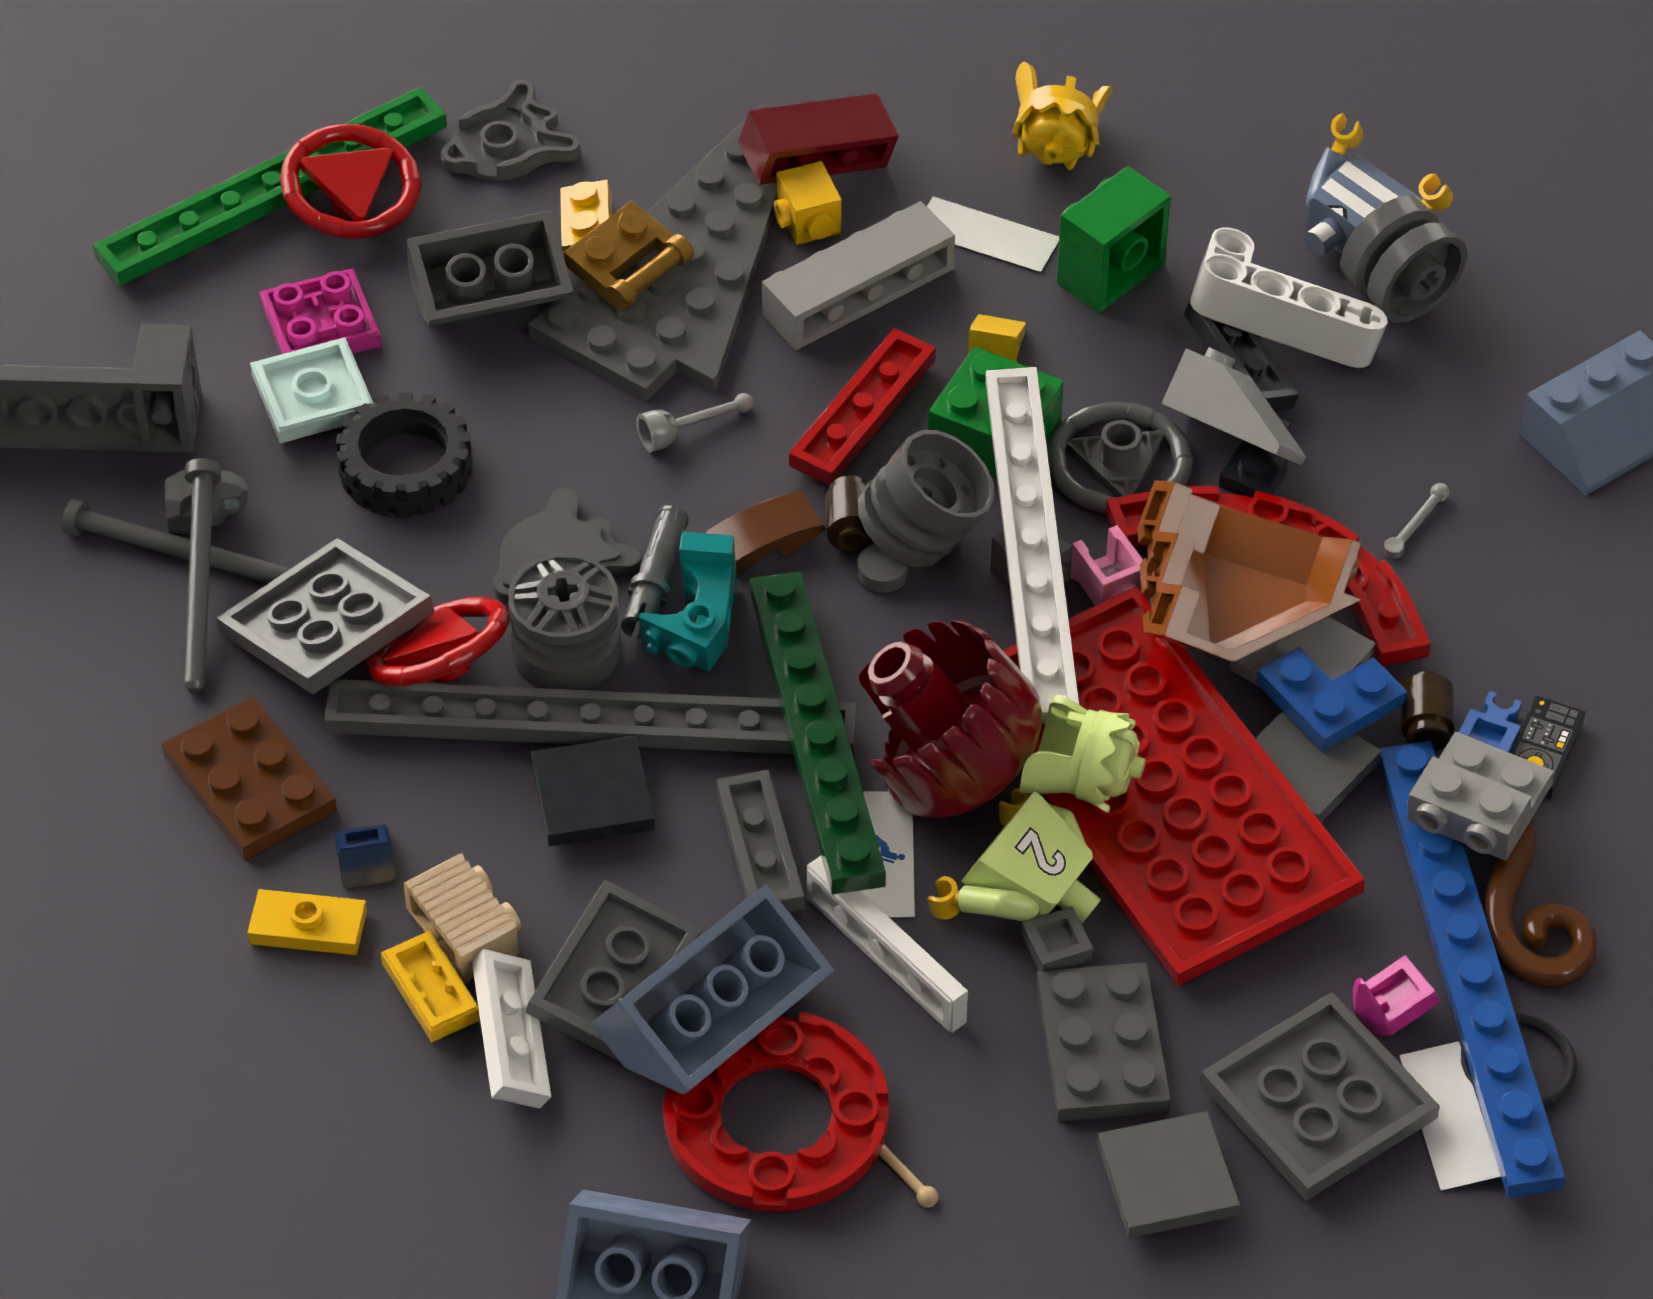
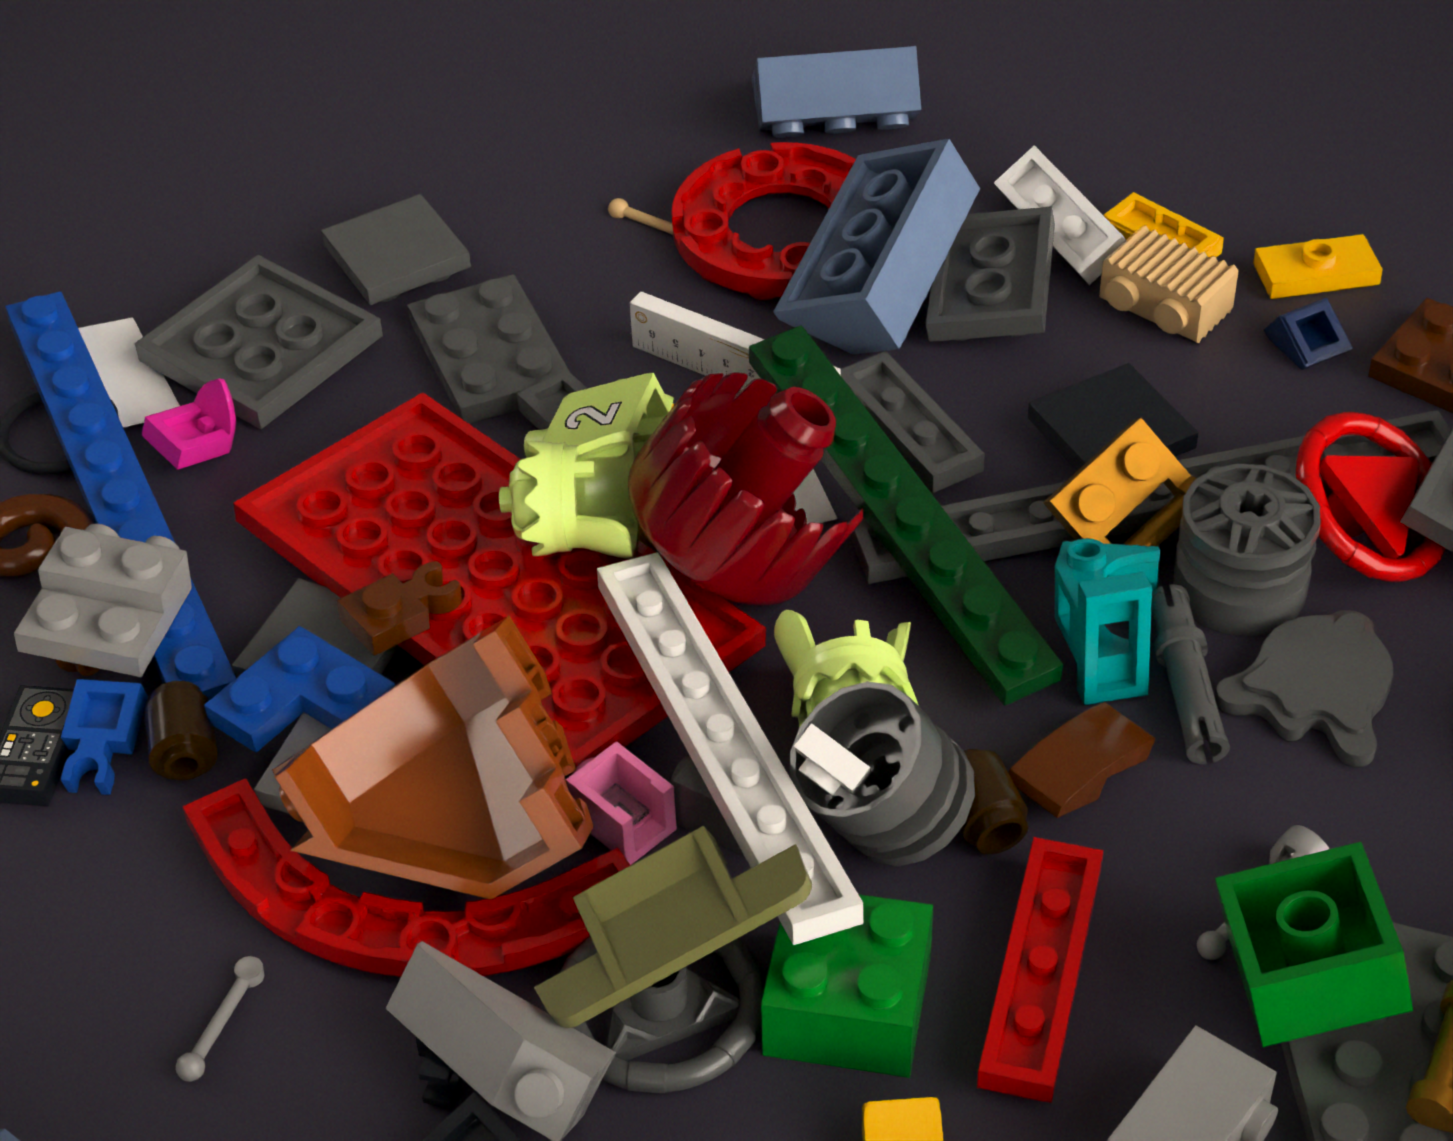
camera: 165 degrees right, 5 degrees down
(631, 681) = (1117, 483): none -> plate
(701, 326) = (1314, 944): none -> green brick
(908, 591) = (839, 661): none -> yellowish green hat
(967, 467) = (829, 762): none -> white plate
(1113, 426) = (665, 918): none -> olive plate
(1247, 726) = (396, 611): none -> reddish brown plate

